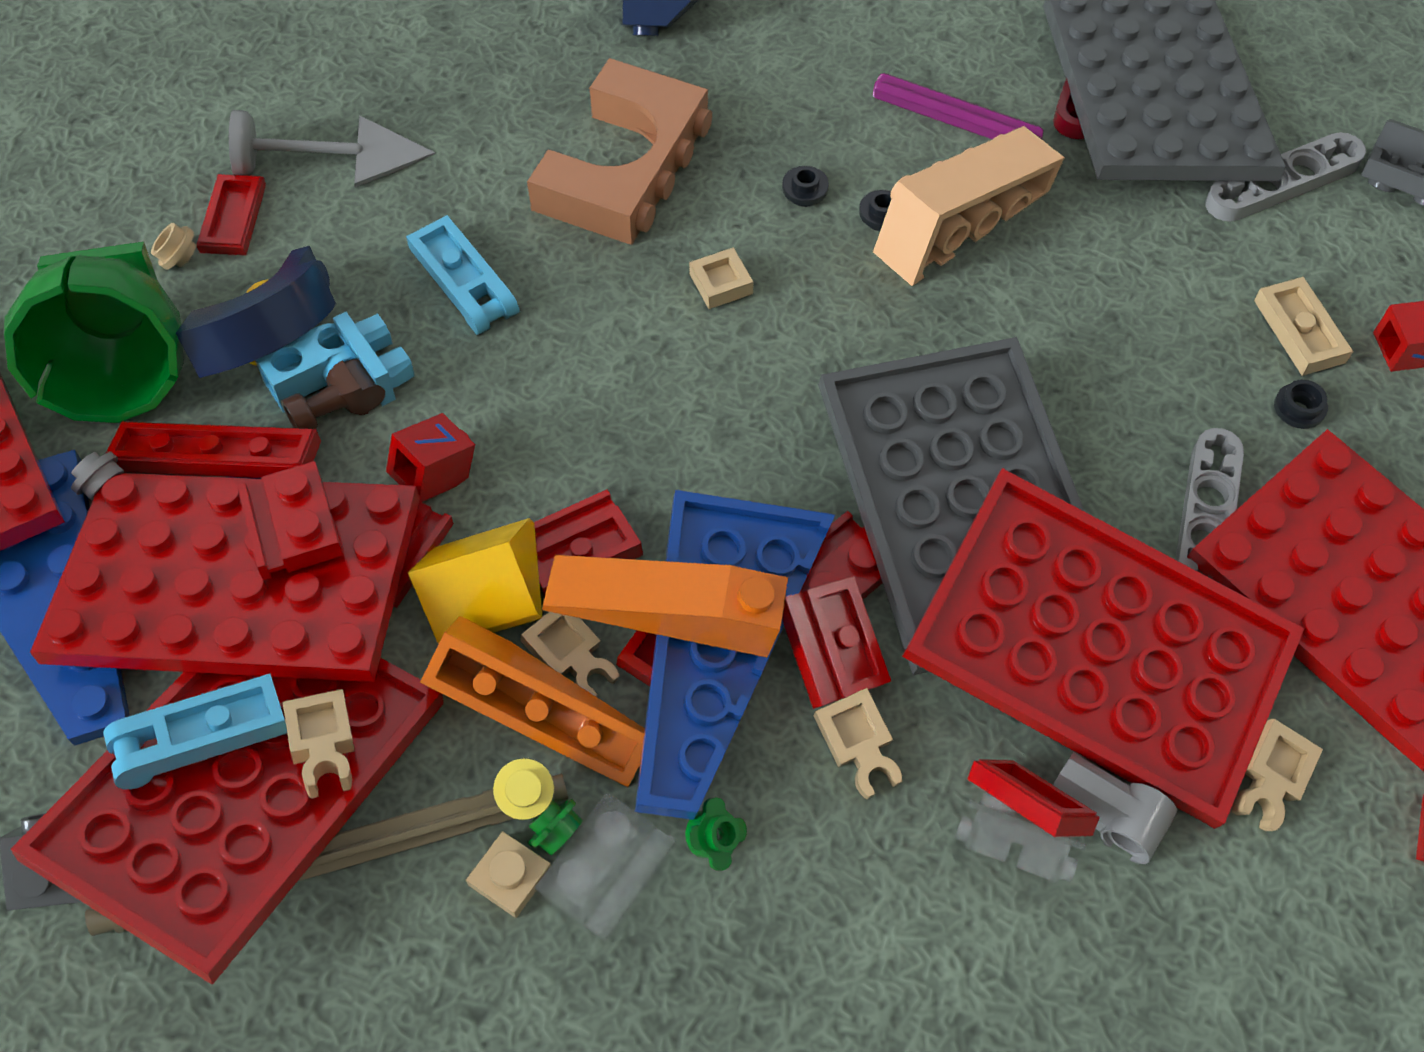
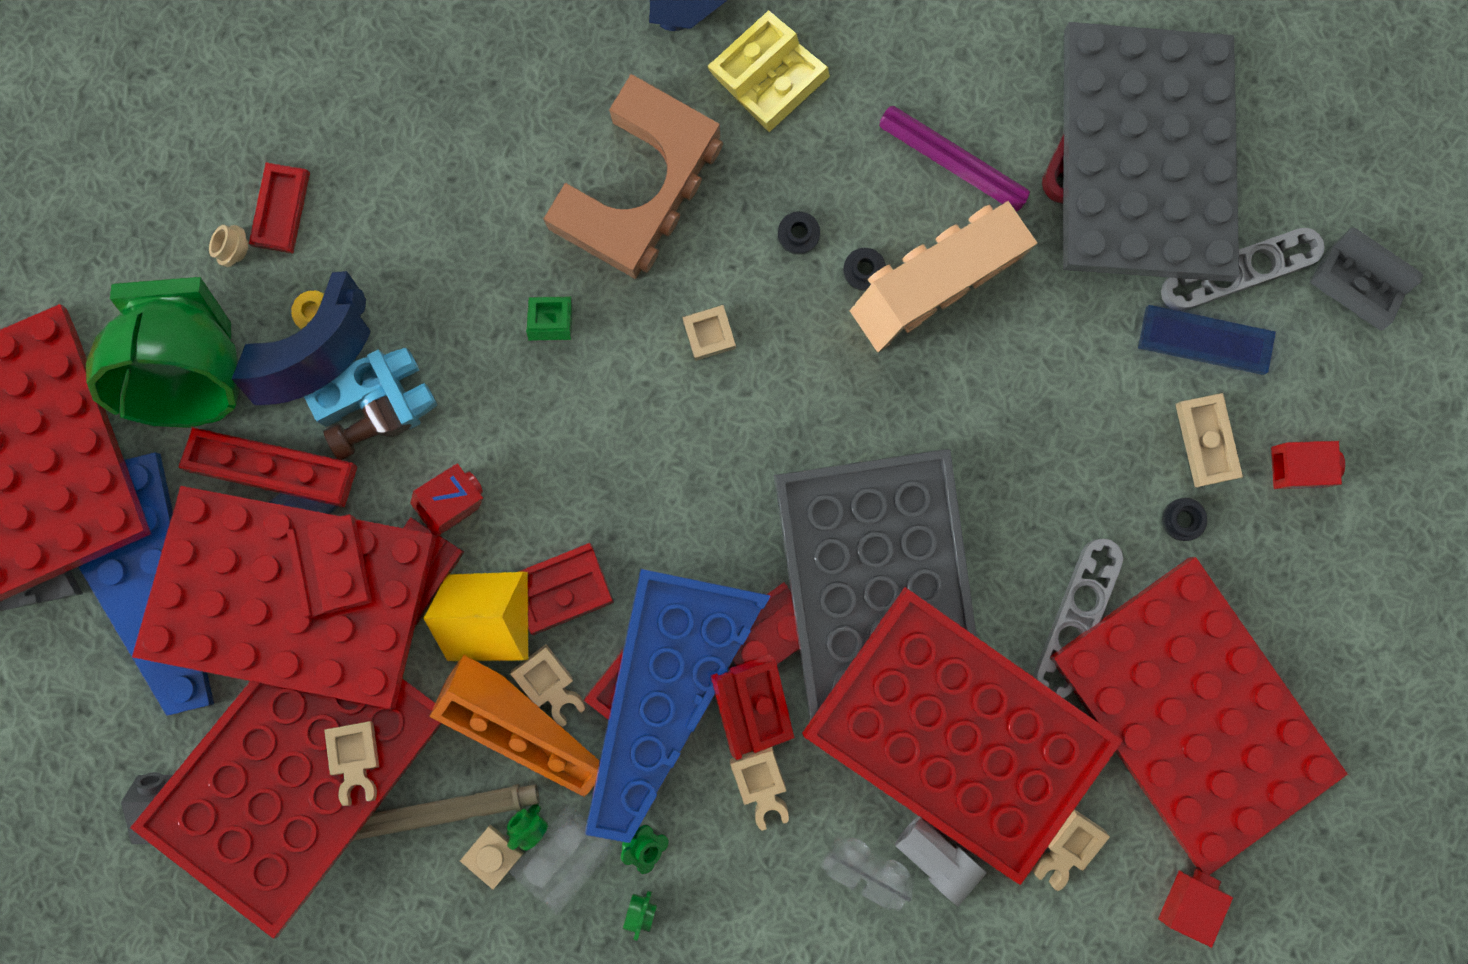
camera: 10 degrees right, 25 degrees up
(94, 472) = (173, 487): light grey plate -> none
(193, 730) = (261, 744): medium azure plate -> none
(376, 150) = (413, 145): light grey piece -> none
(462, 274) = (481, 301): medium azure plate -> none
(523, 789) = (503, 807): light yellow plate -> none
(539, 281) = (549, 318): none -> green tile
(672, 599) = (622, 678): orange slope -> none
(720, 921) = (639, 914): none -> green plate
(740, 49) = (758, 56): none -> light yellow slope
(1034, 798) = (880, 857): red tile -> none
(1269, 240) = (1206, 340): none -> clear blue tile

